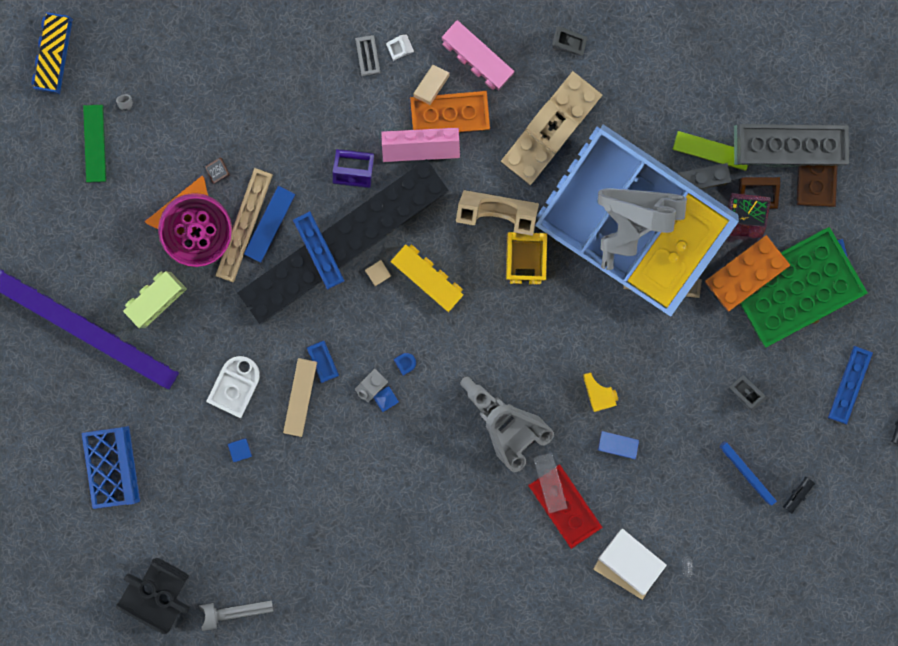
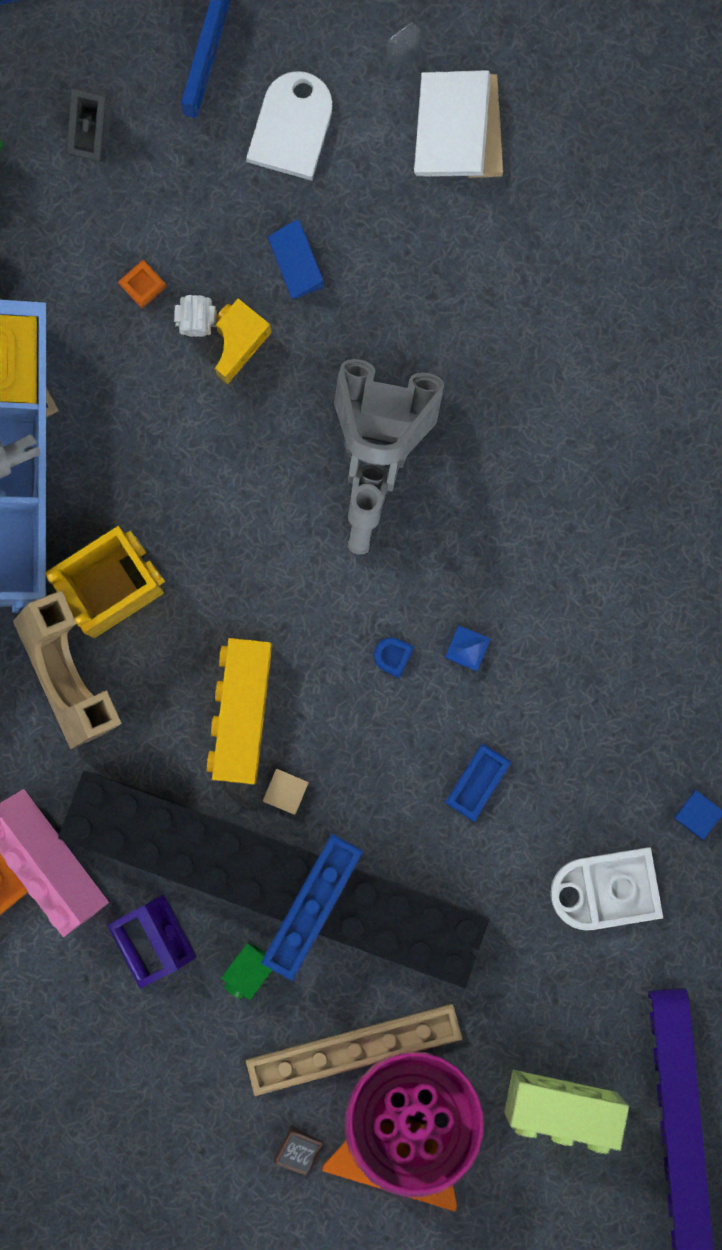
camera: 130 degrees left, 5 degrees down
(269, 224) = (325, 1011): blue tile -> none
(300, 397) = (555, 779): tan tile -> none
(310, 201) = (246, 972): none -> green brick
(371, 385) = (463, 683): light grey bracket -> none
(550, 482) = (420, 319): clear tile -> none
(575, 521) = (439, 276): red tile -> none
(623, 380) = (195, 316): none -> white gear
(656, 367) = (142, 284): none -> orange tile
(683, 486) = (291, 127): none -> white tile

